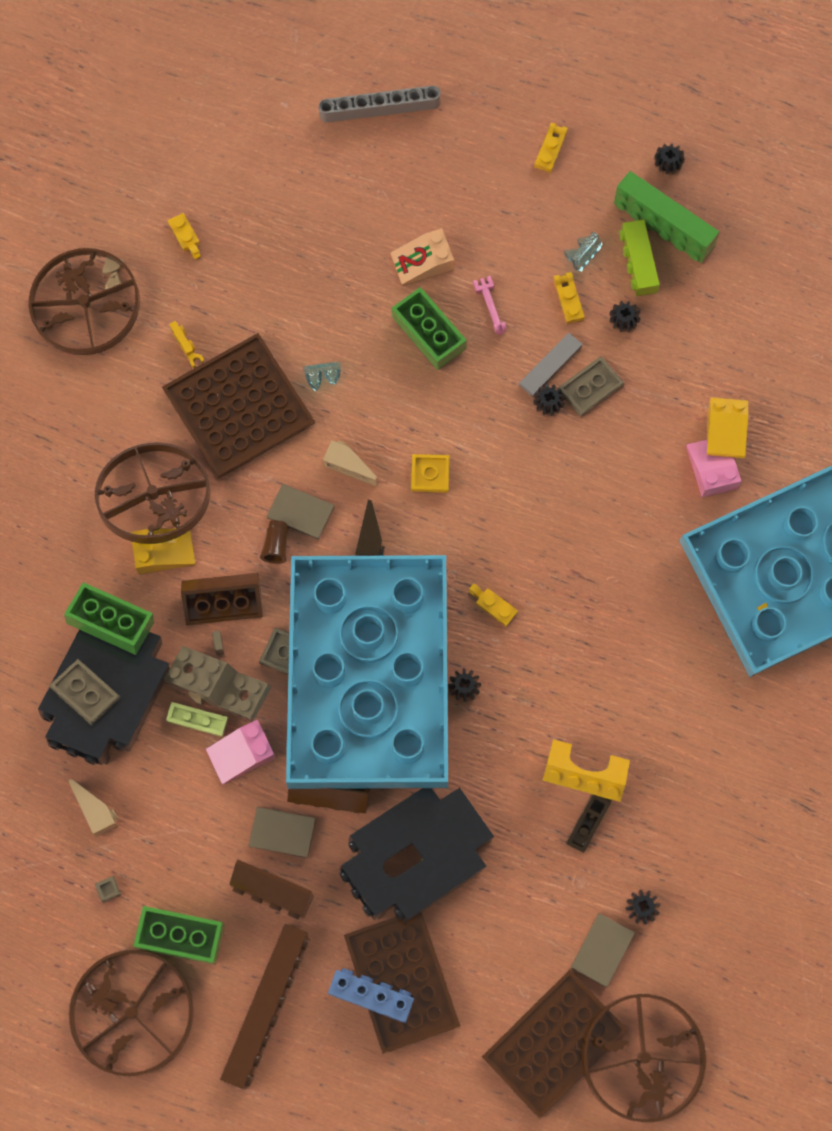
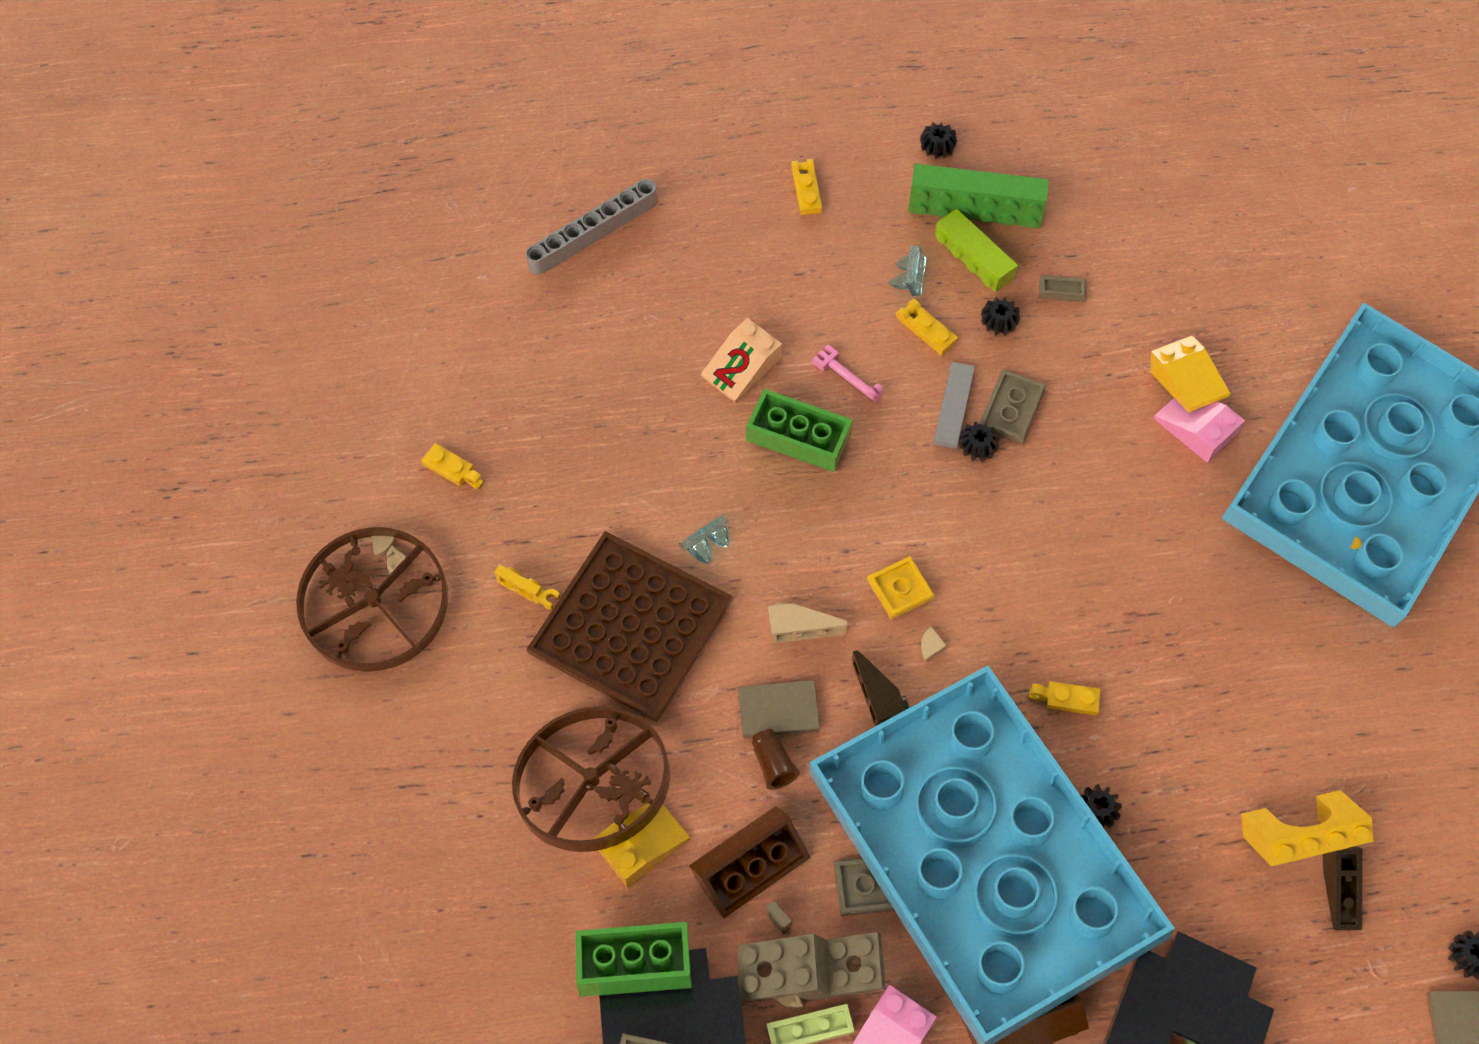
camera: 30 degrees left, 10 degrees down
(426, 522) = (931, 644): none -> tan tile
(685, 318) = (1062, 288): none -> dark tan tile

